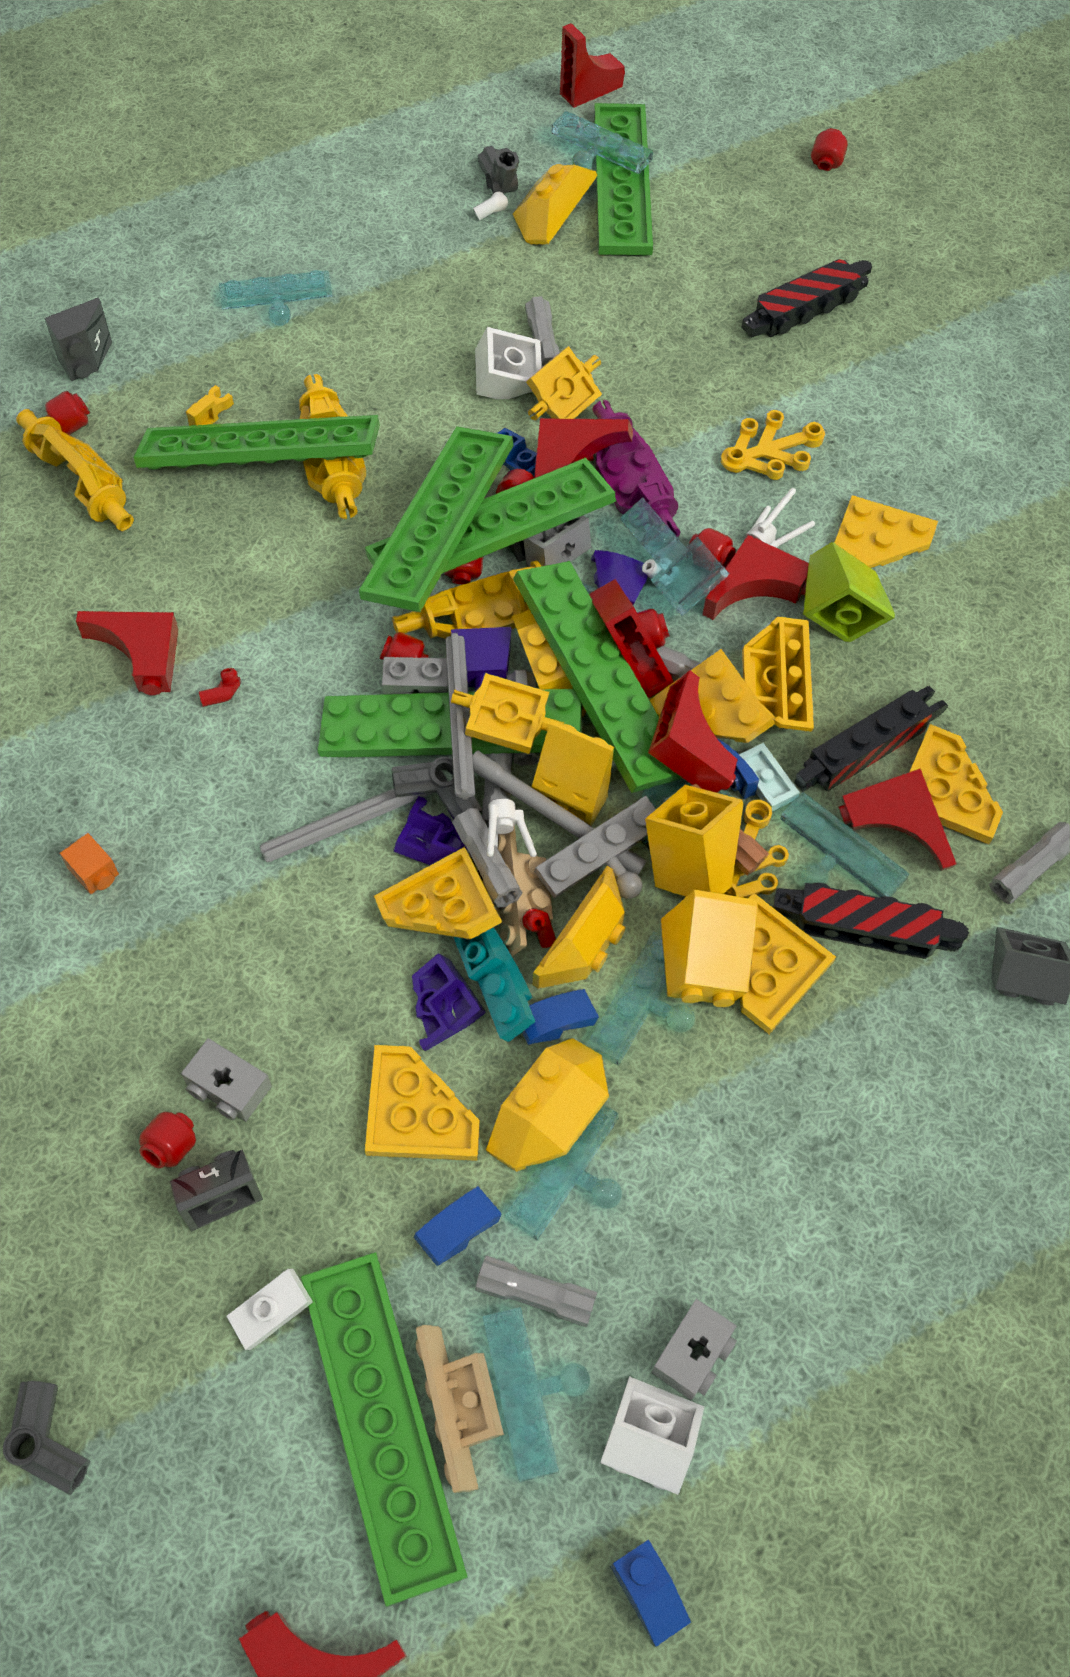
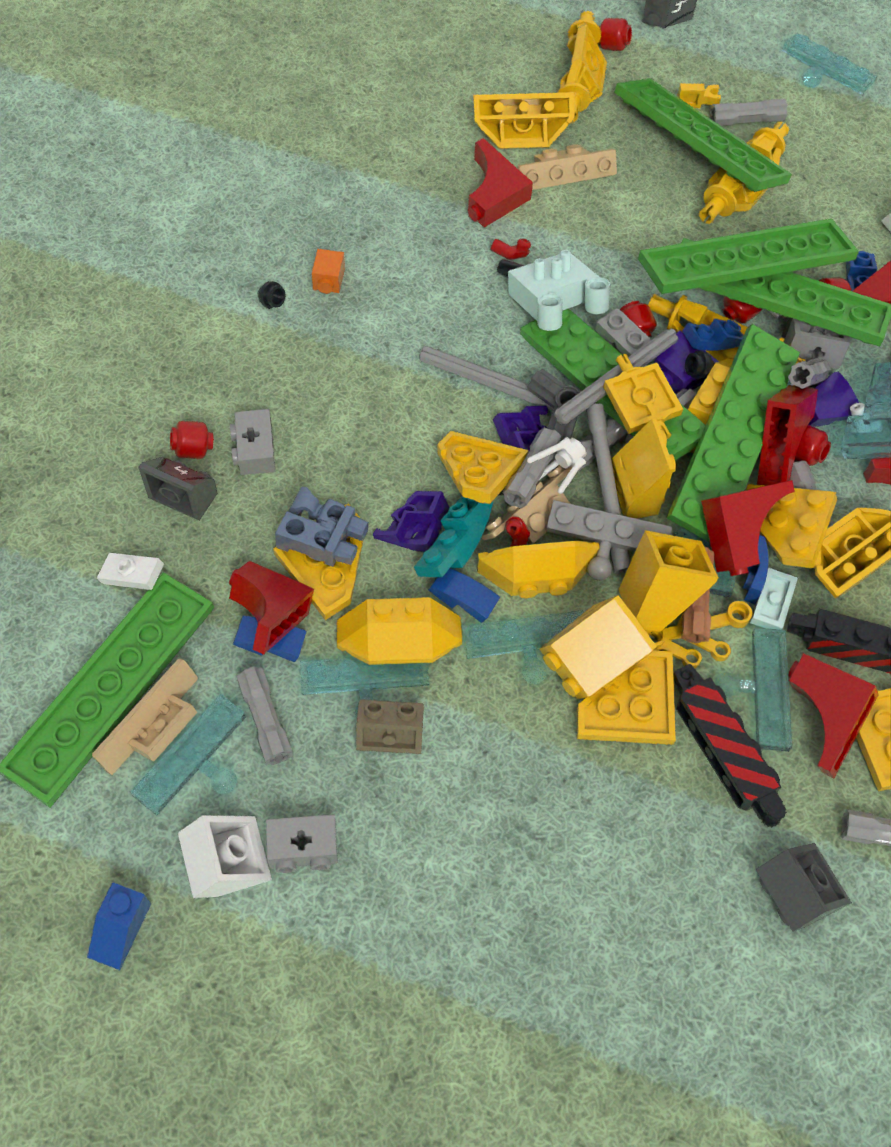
camera: 50 degrees right, 0 degrees up
(62, 937) = (271, 295): none -> black plate
(89, 561) = (523, 119): none -> yellow wedge
(177, 569) = (569, 166): none -> tan bracket
(279, 374) = (765, 111): none -> light grey axle
(306, 687) = (555, 285): none -> light aqua piece
(402, 1092) = (327, 536): none -> sand blue hips
(426, 1192) = (272, 599): none -> red arch
(482, 608) = (717, 336): none -> blue slope
(505, 644) = (698, 364): none -> black plate
(593, 573) = (809, 373): none -> light grey axle
(640, 1182) = (389, 726): none -> dark tan bracket

